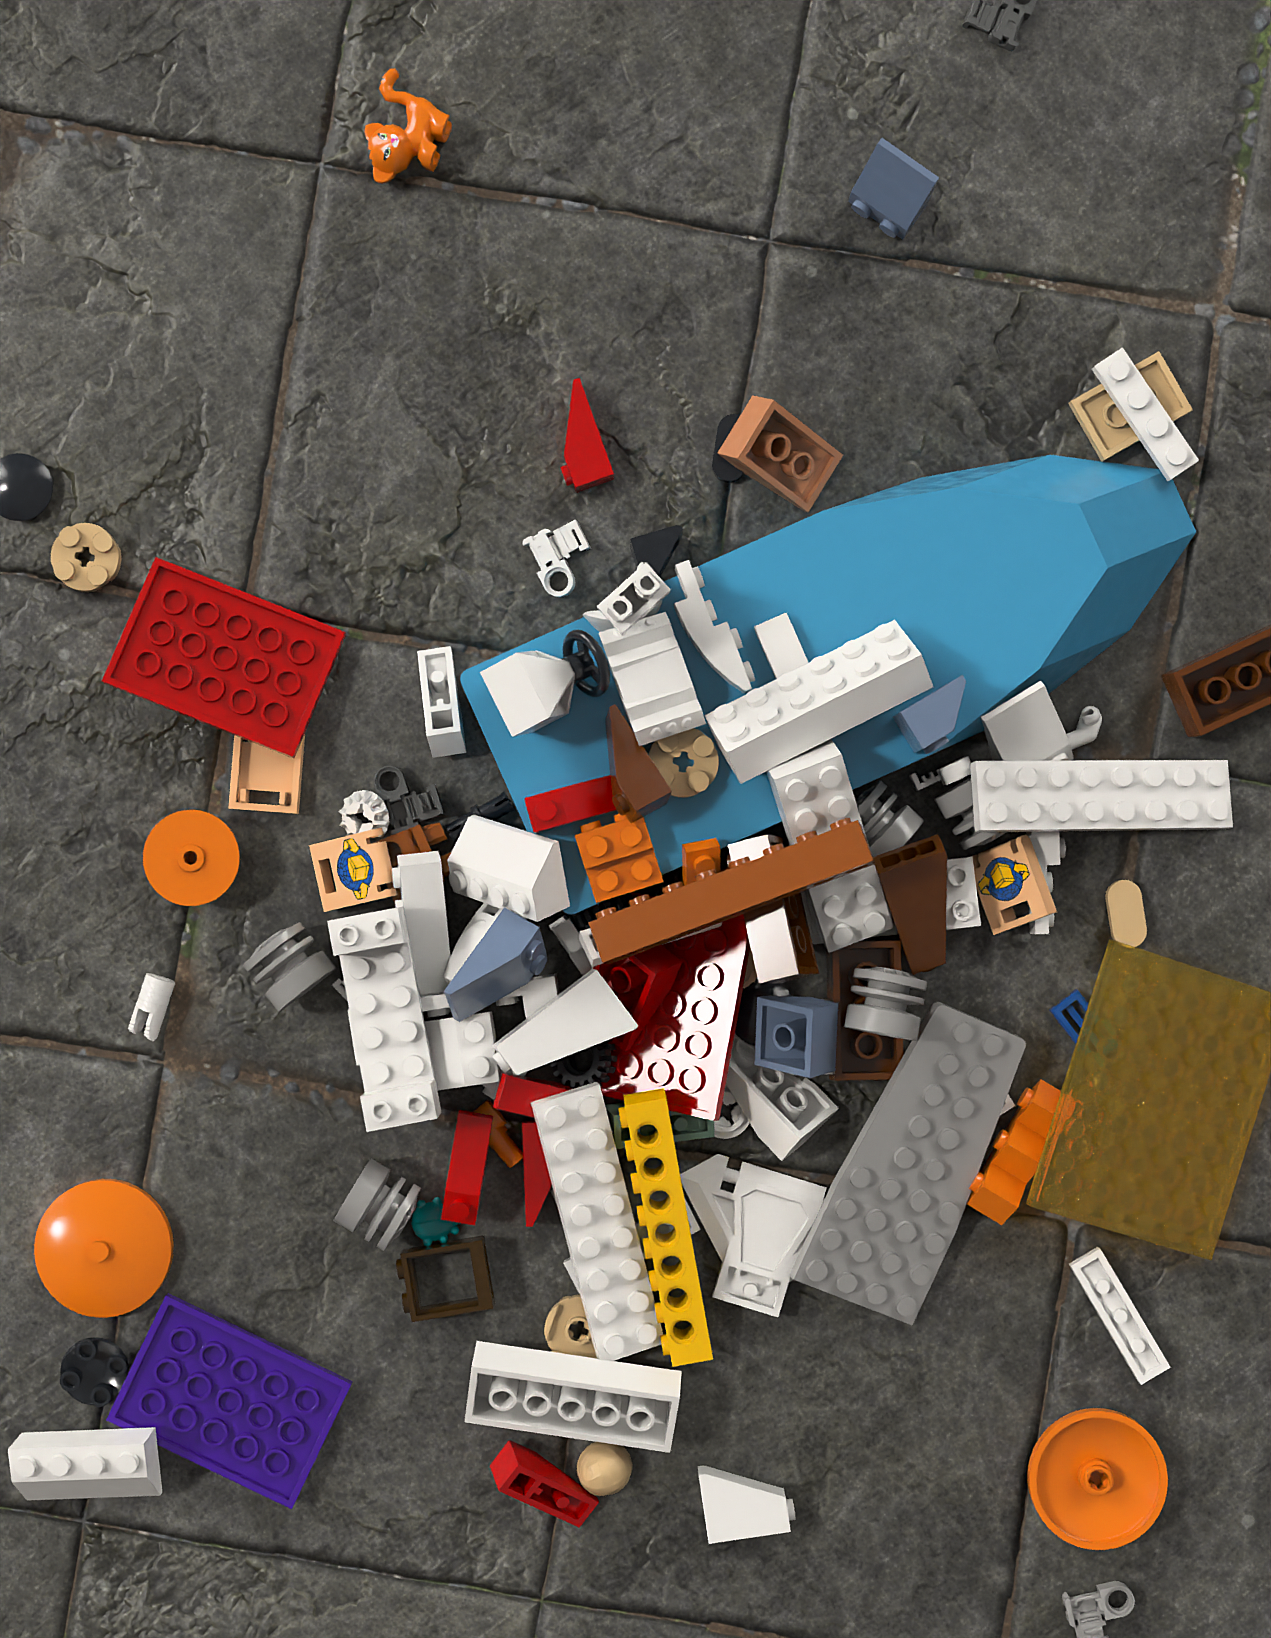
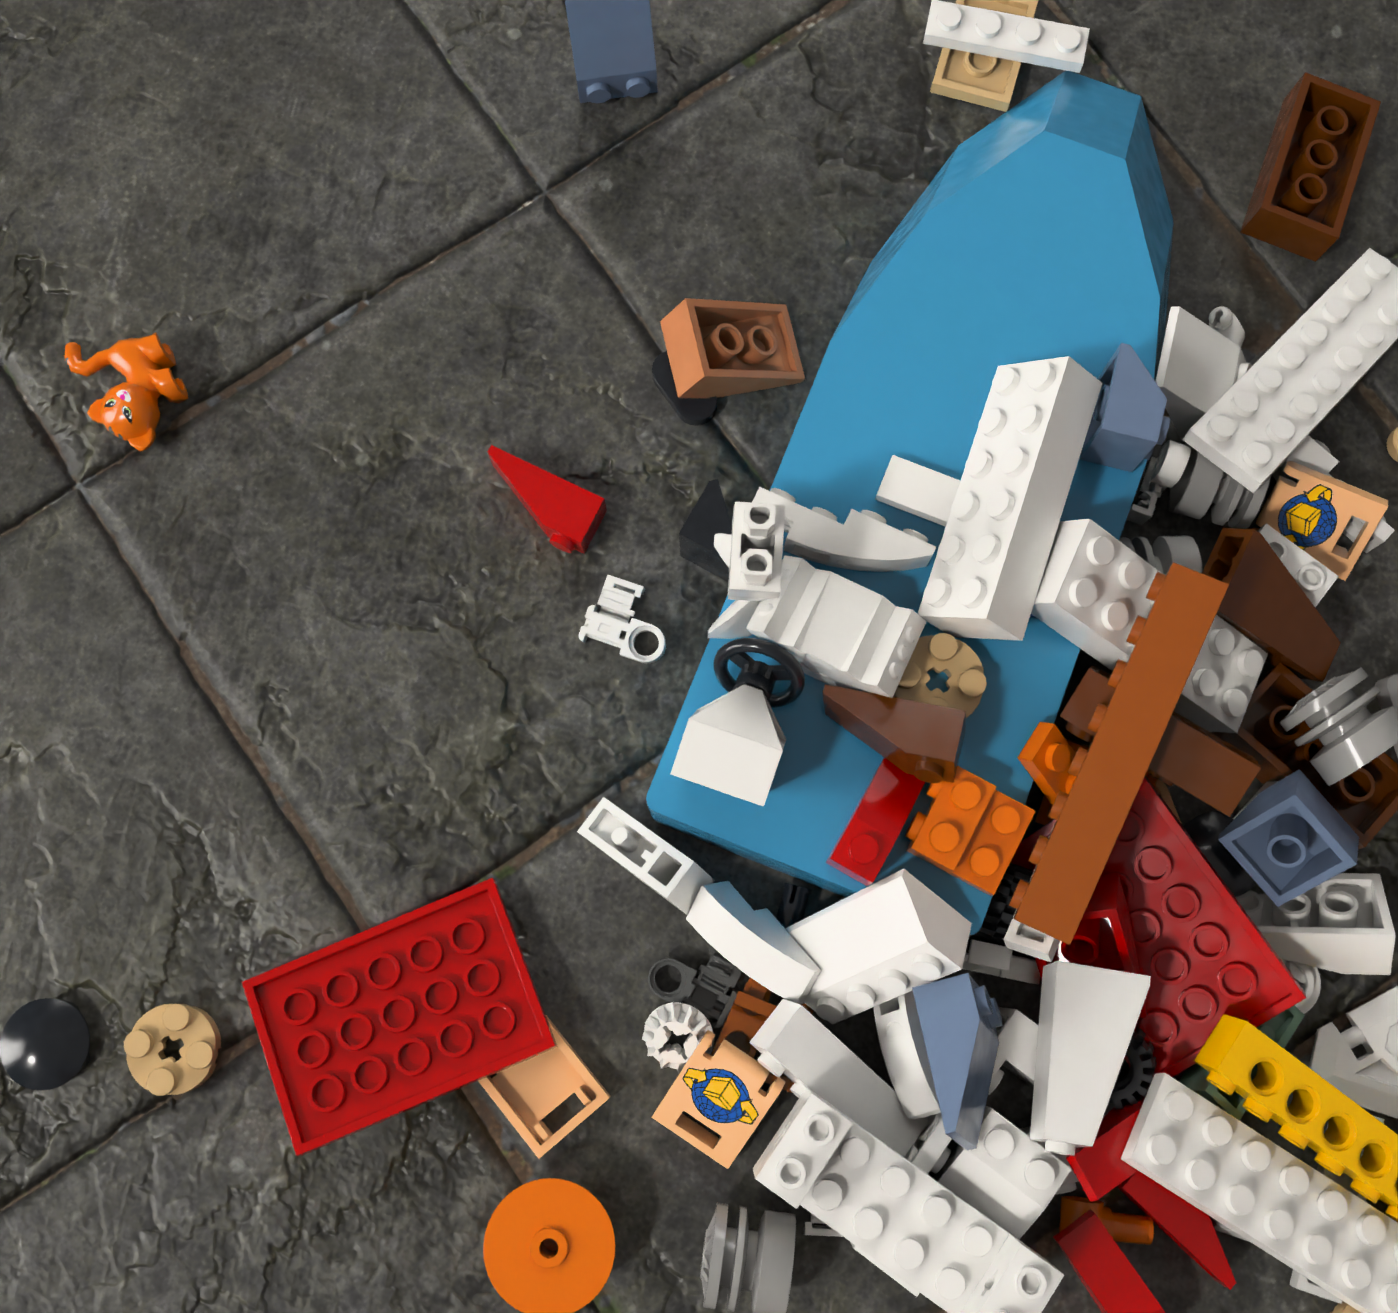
camera: 40 degrees left, 10 degrees down
(452, 804) = (753, 941): none -> white slope

